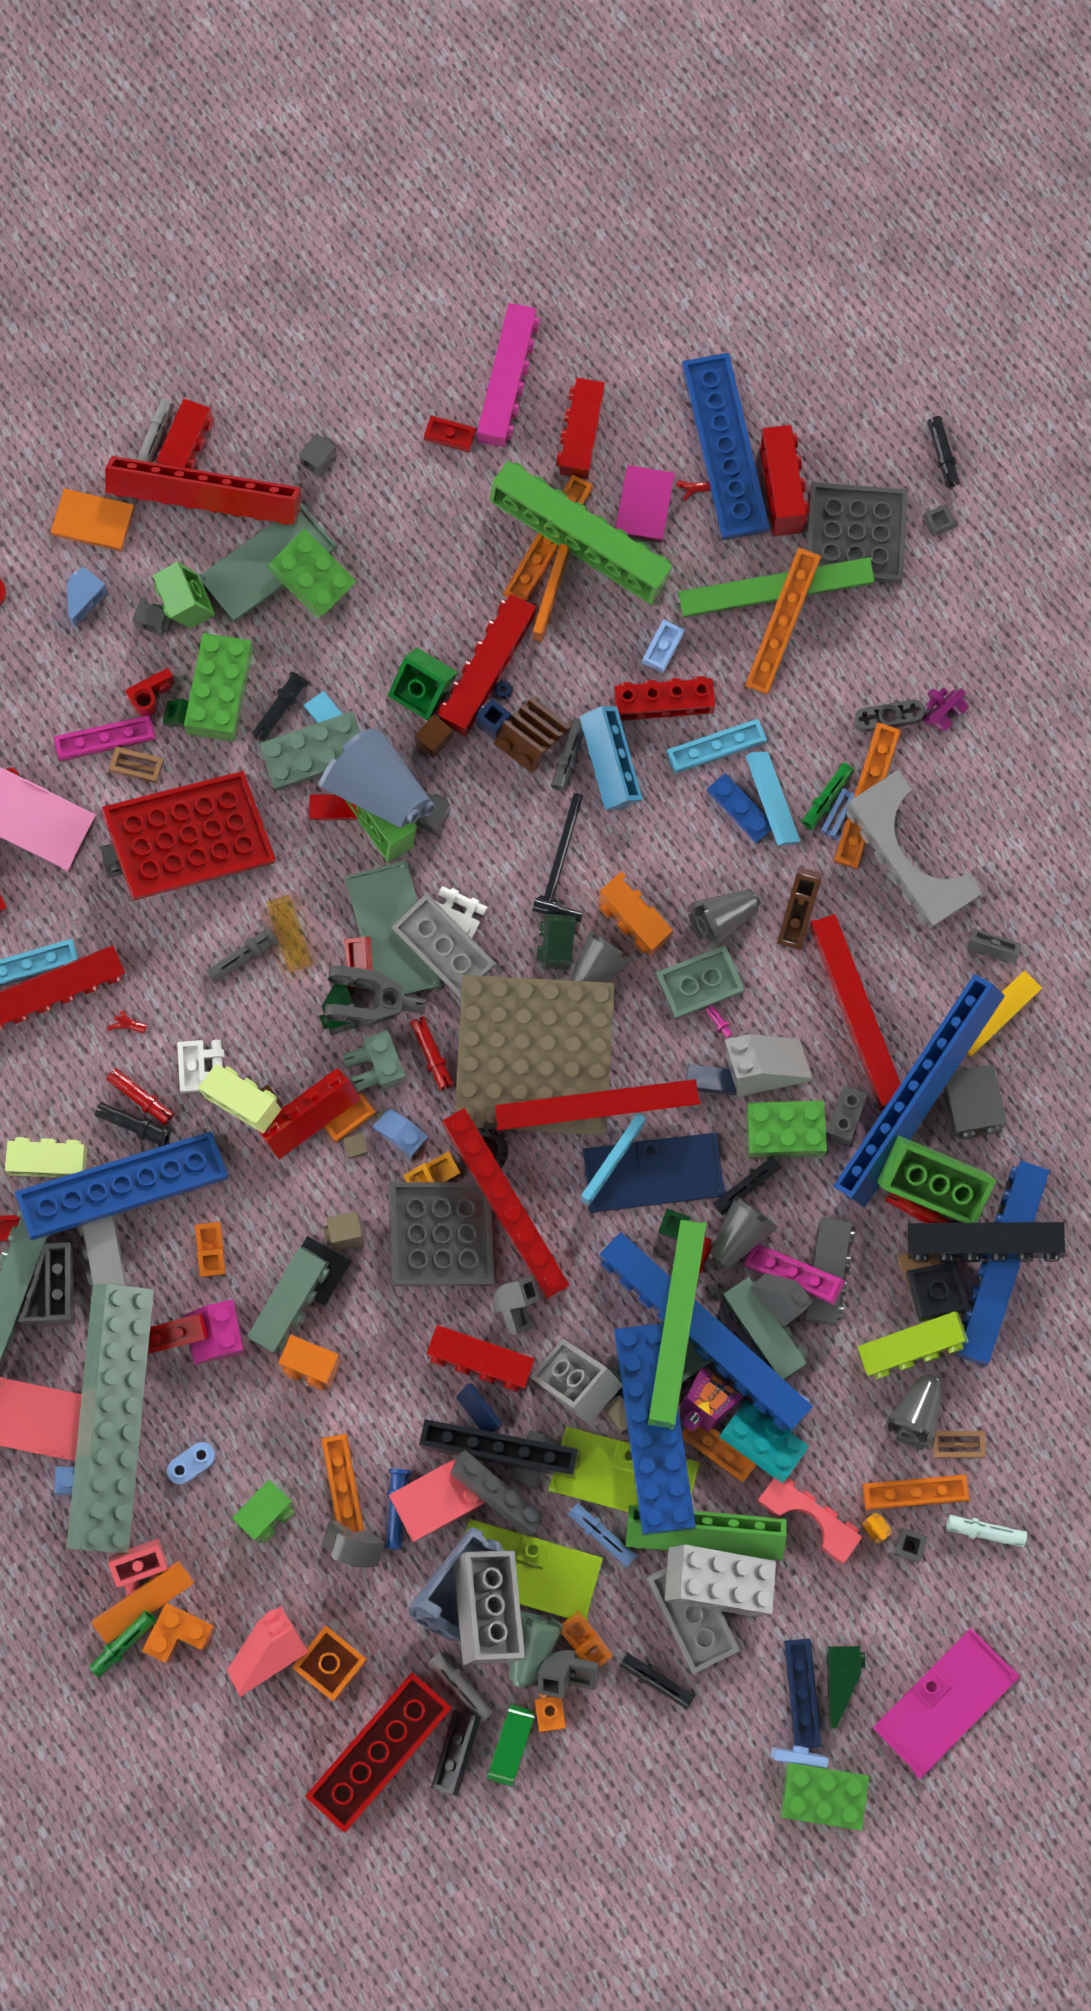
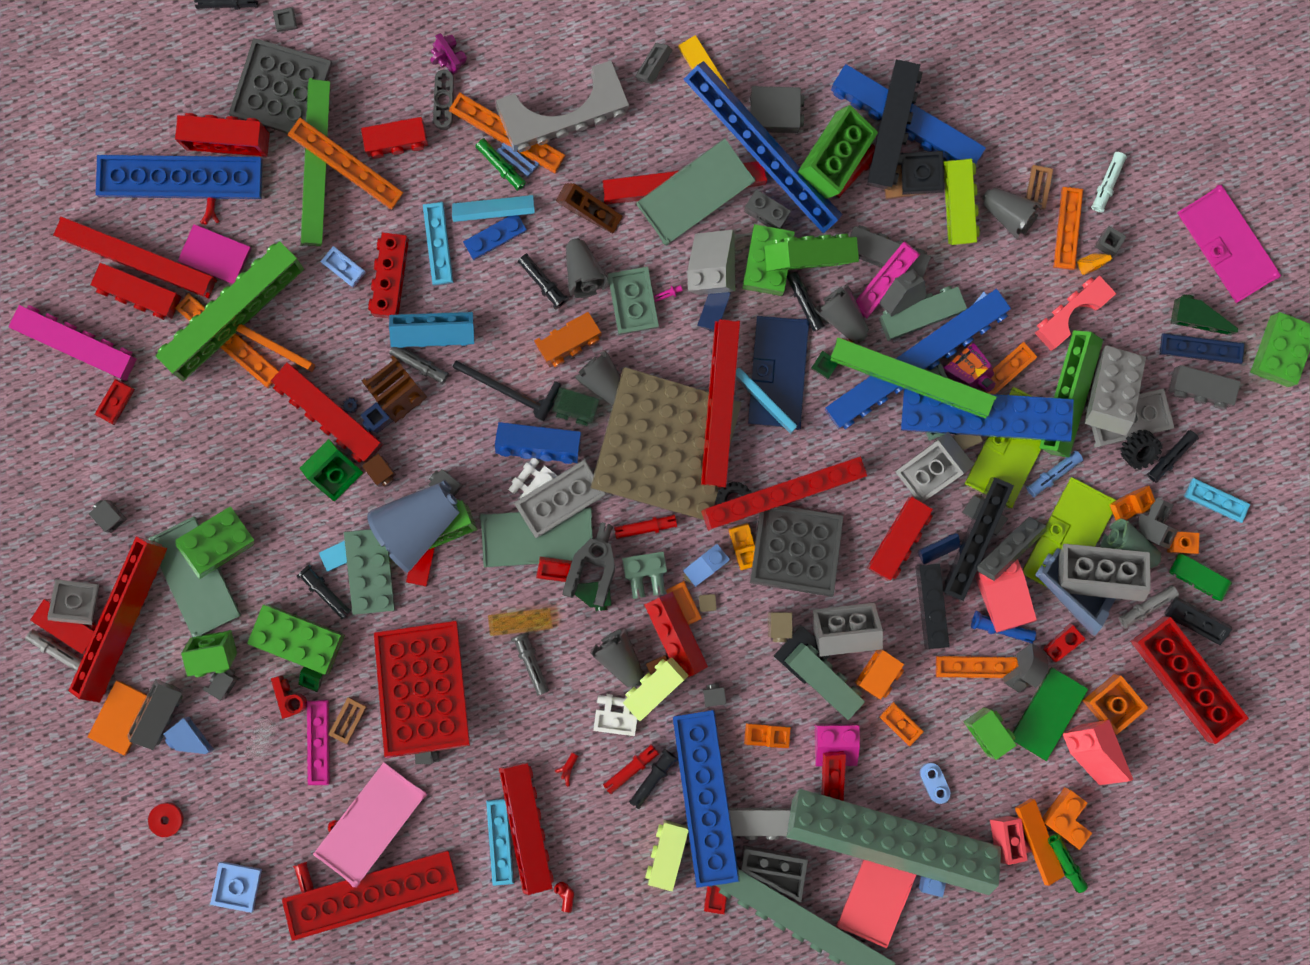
camera: 80 degrees left, 10 degrees up
(103, 553) = (155, 714): none -> dark grey brick
(213, 439) = (73, 602): none -> light grey tile
(246, 1174) = (714, 695): none -> dark grey plate
(255, 1406) = (901, 724): none -> orange plate
(268, 1053) = (619, 658): none -> dark grey cone
(302, 1587) = (1048, 713): none -> green tile
(356, 1312) = (847, 629): none -> light grey brick
(393, 1586) = (1064, 643): none -> red leg
(405, 1413) = (932, 606): none -> black brick
(504, 907) = (537, 443): none -> blue brick
(512, 1301) = (863, 502): dark grey brick -> none
(613, 1750) = (1217, 500): none -> medium azure tile
(620, 419) = (135, 257): none -> red tile
(664, 1626) = (1131, 449): none -> black tyre
(692, 882) = (549, 288): none -> black pin
(752, 1702) = (1204, 387): none -> dark grey brick
(763, 1442) = (1011, 334): teal plate -> none
(800, 1756) = (1251, 361): light blue plate -> none
(801, 1169) = (811, 252): none -> bright green brick
(829, 670) = (394, 137): none -> red brick
(847, 1023) = (695, 191): none -> sand green door

